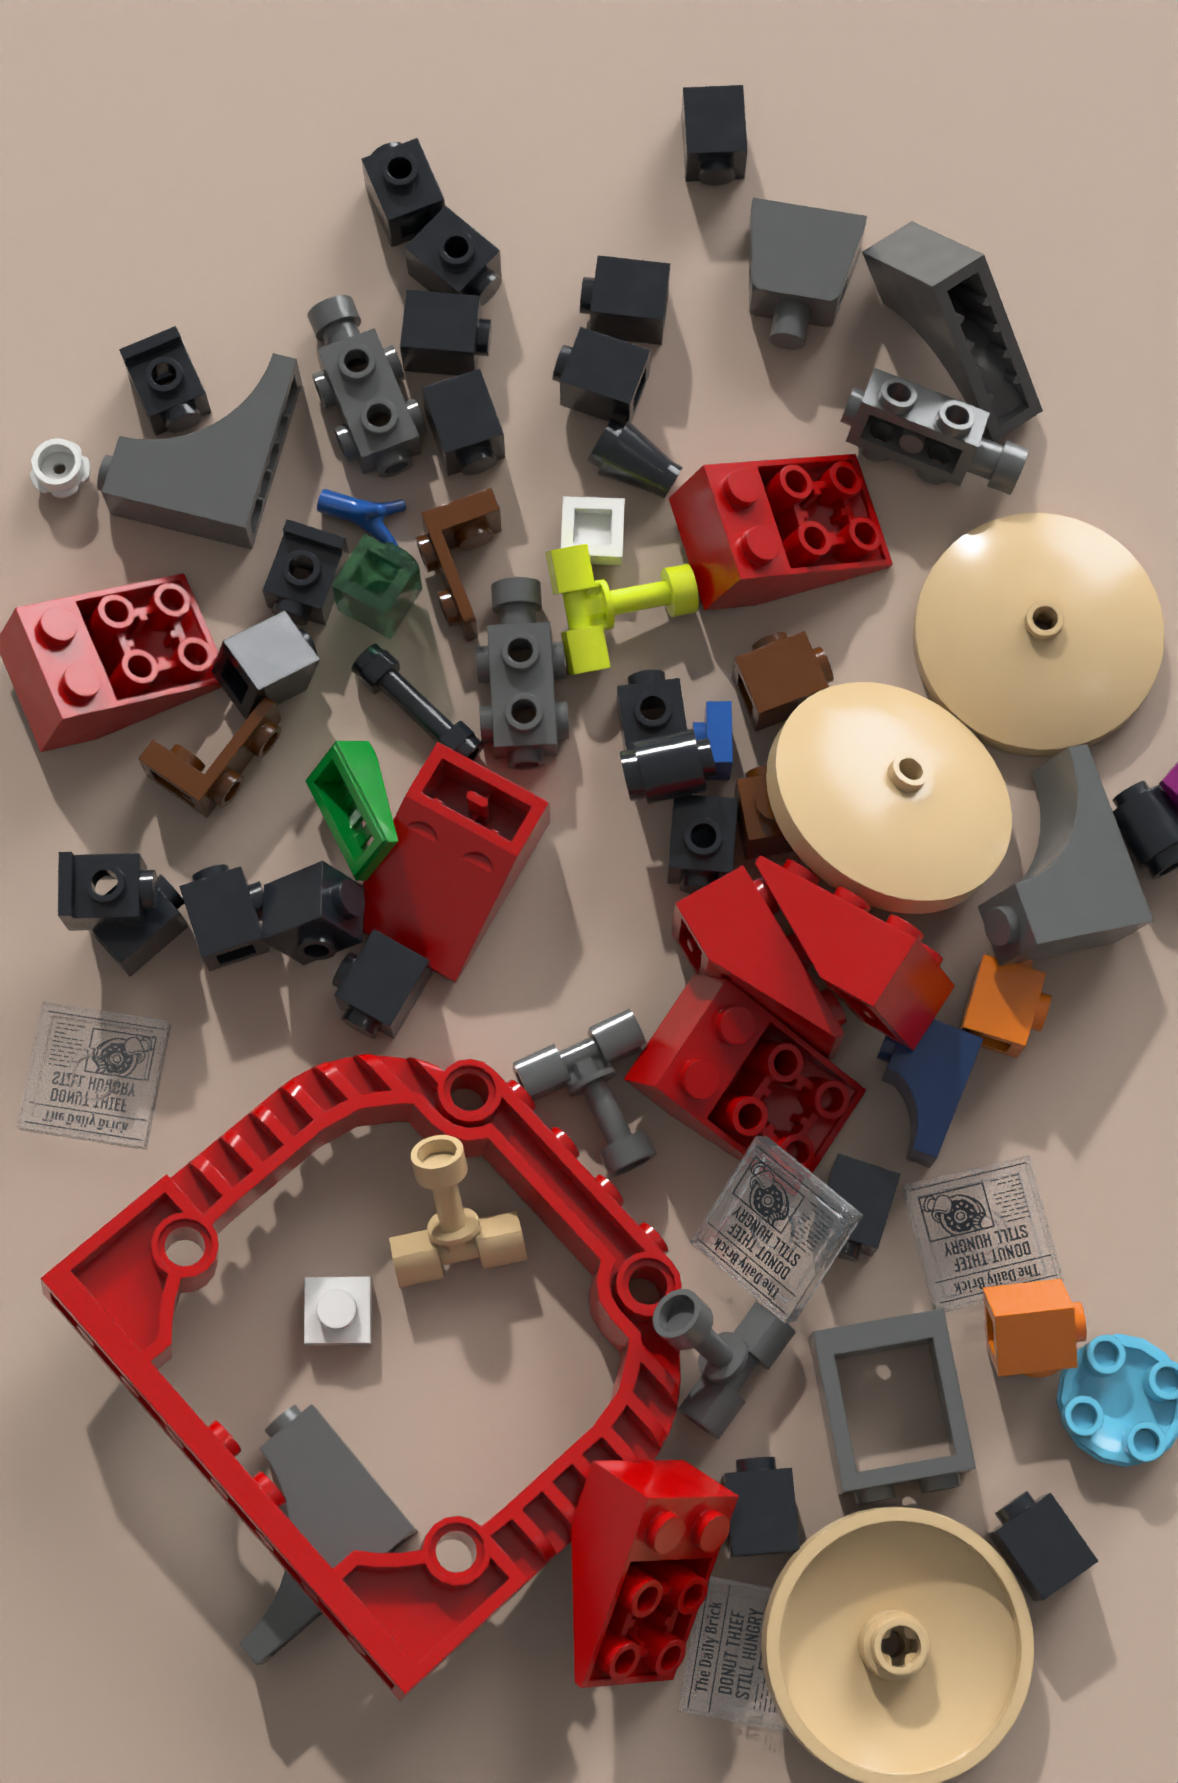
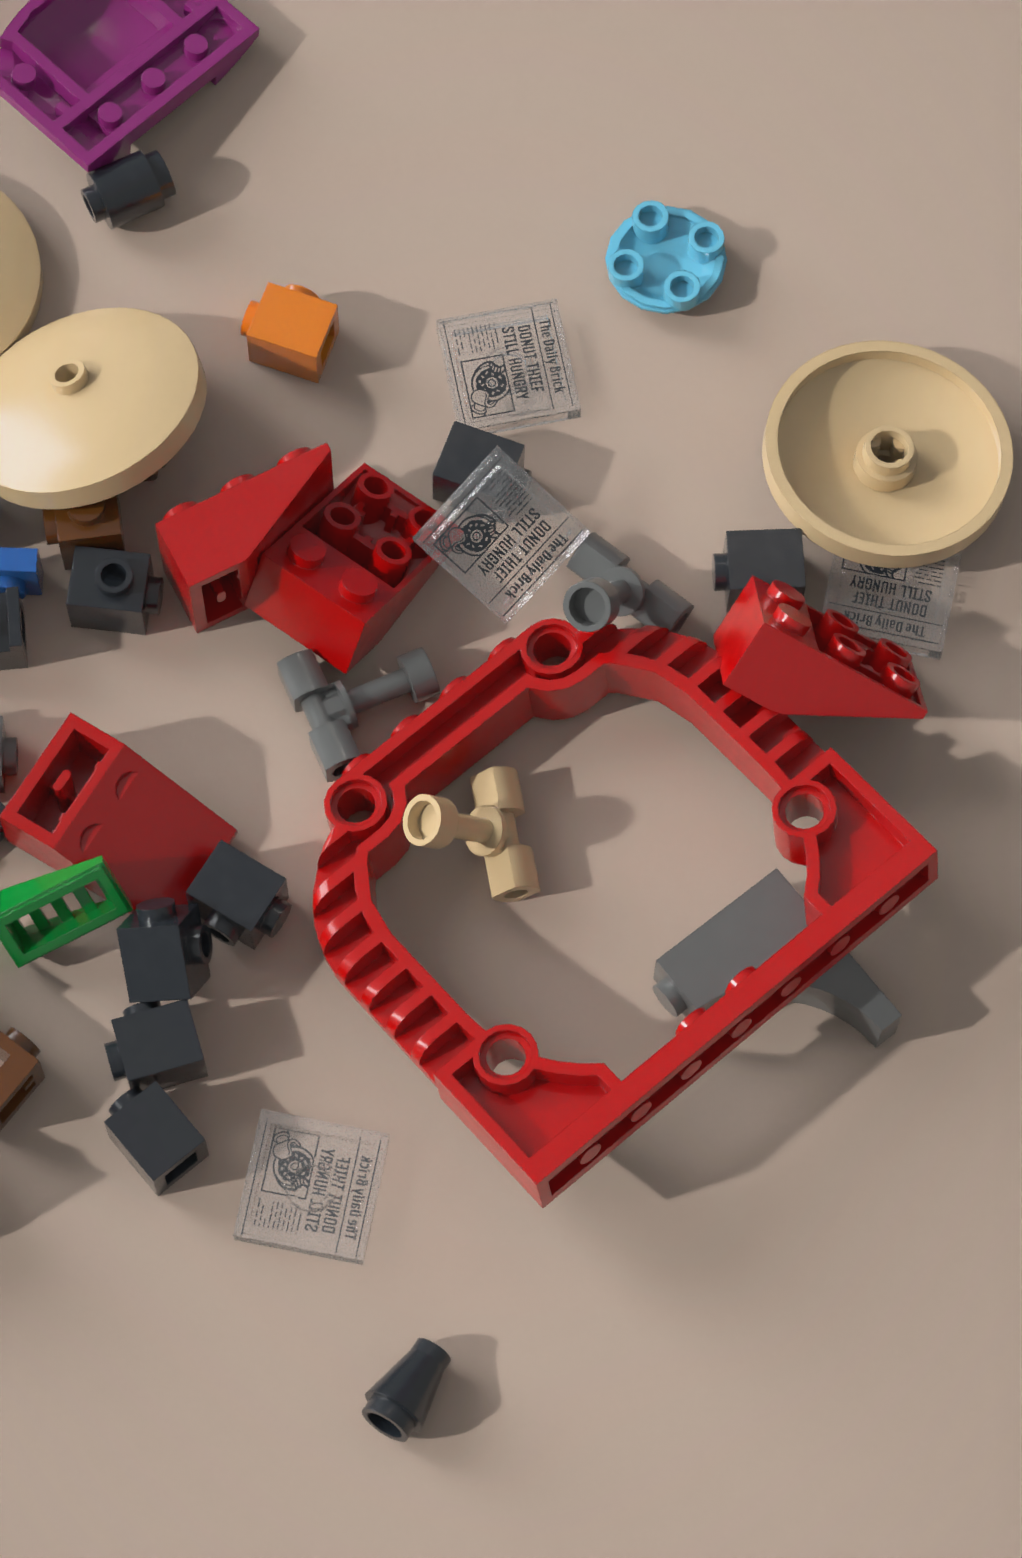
camera: 90 degrees left, 5 degrees down
(124, 908) = (136, 1164): black brick -> none
(338, 1311) = (560, 952): white plate -> none
(667, 766) = (41, 602): black brick -> none
(867, 962) = (252, 426): red slope -> none
(876, 1337) = (667, 501): dark grey window -> none
(930, 1083) = (359, 396): dark blue arch -> none
(1032, 1328) = (600, 324): orange brick -> none
(1040, 1544) = (795, 330): black brick -> none
(1081, 878) = (167, 250): dark grey arch -> none

